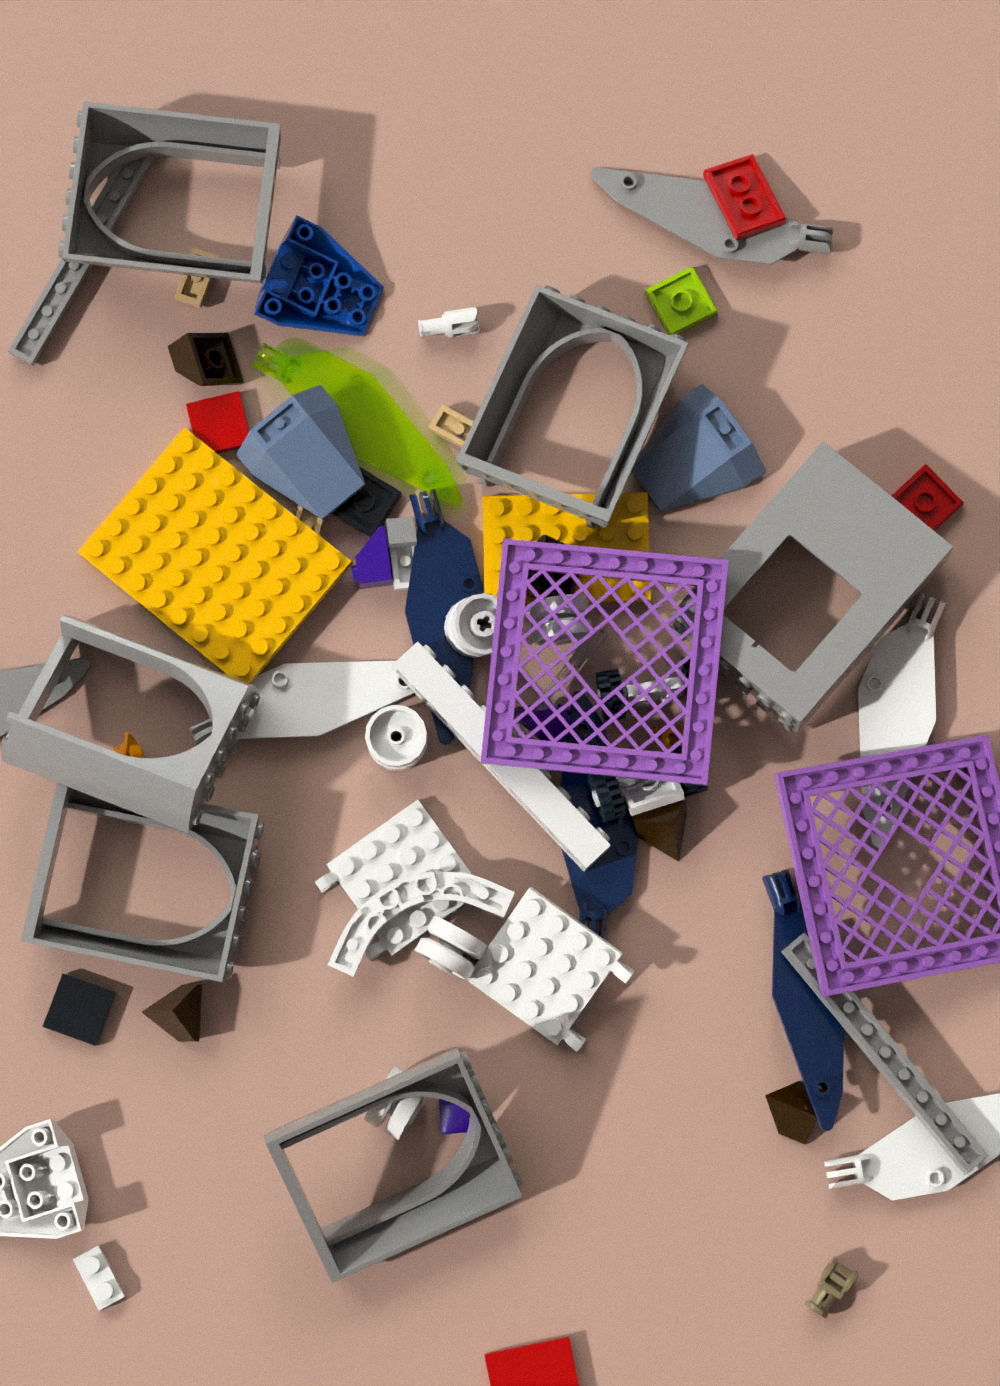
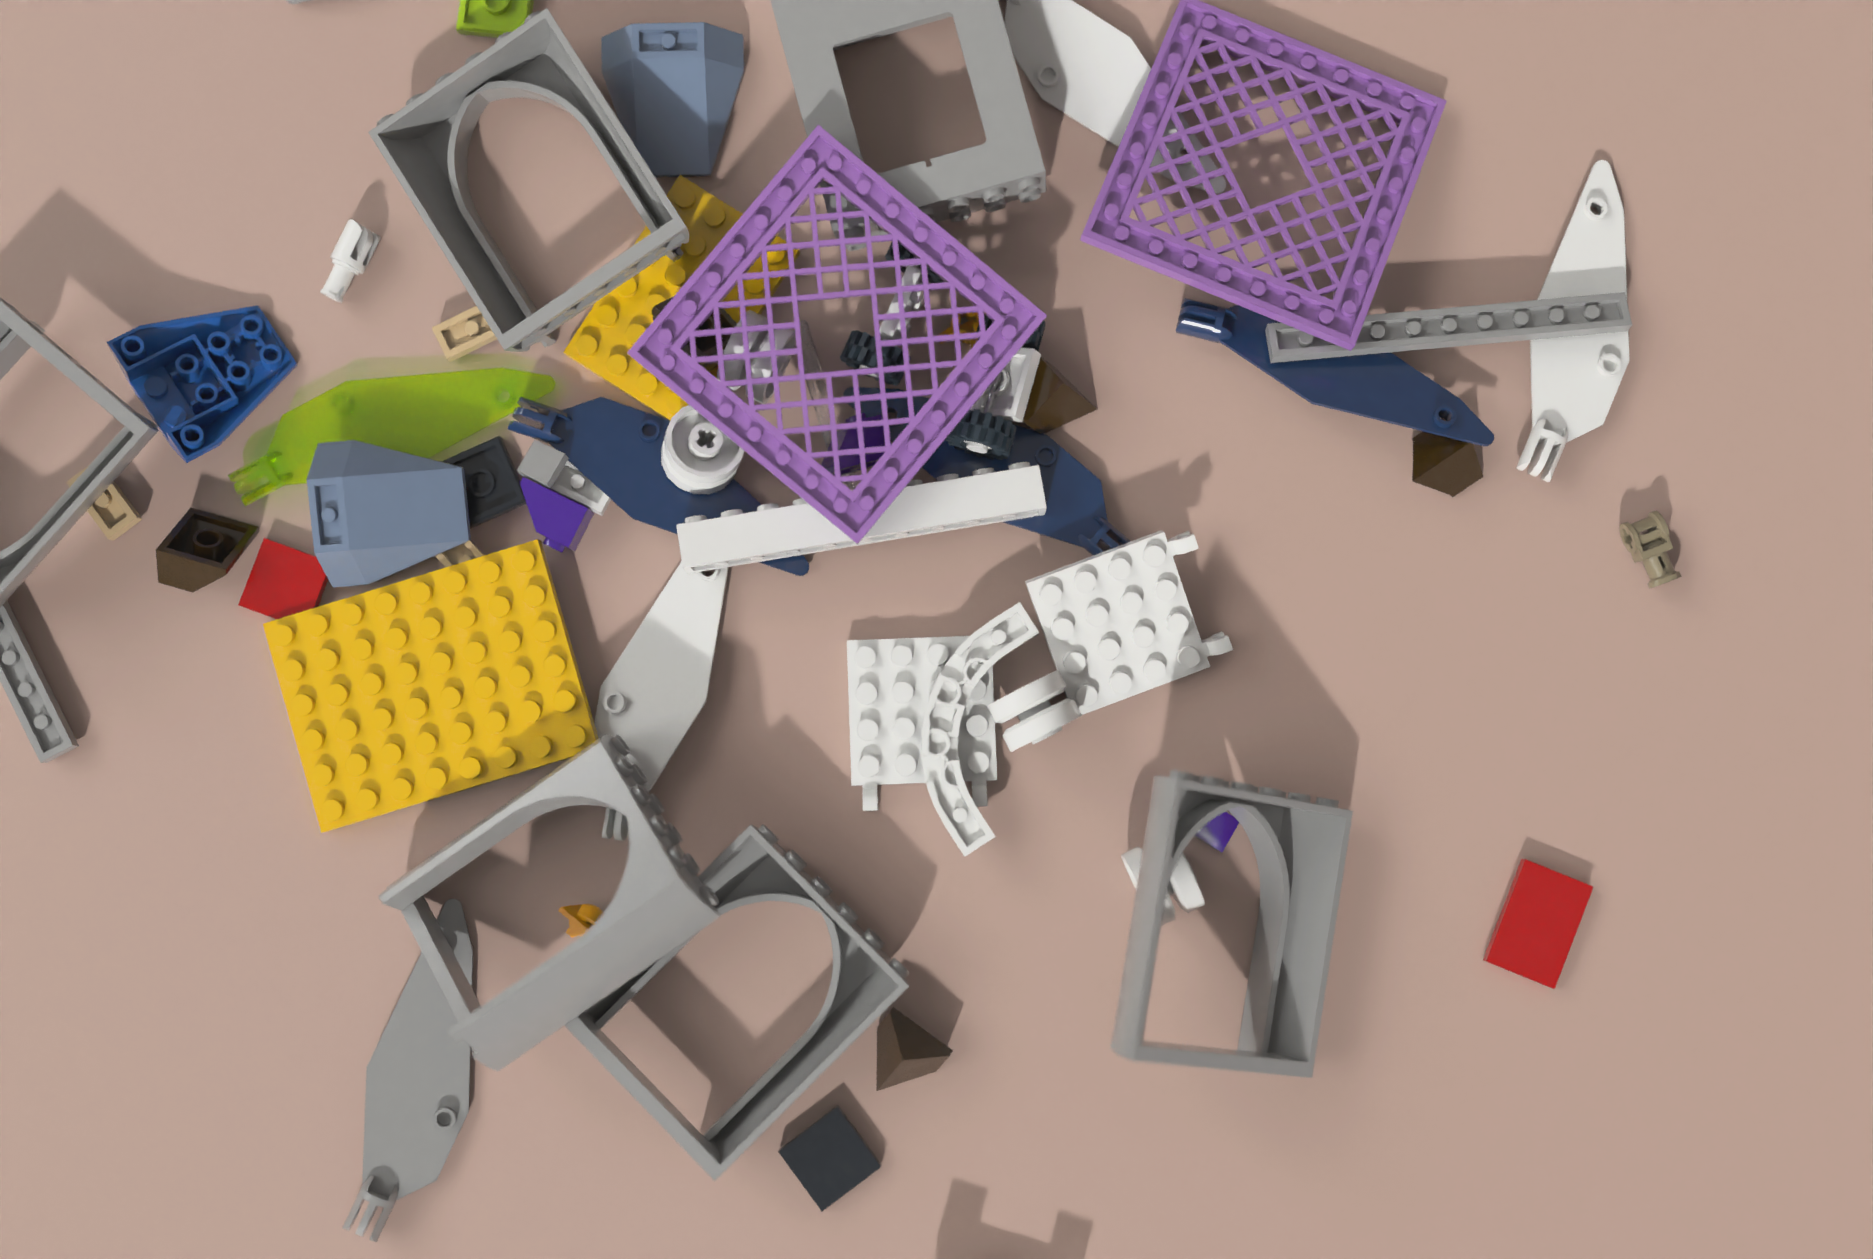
camera: 55 degrees left, 5 degrees up
(399, 754) = (765, 596): white wheel -> none

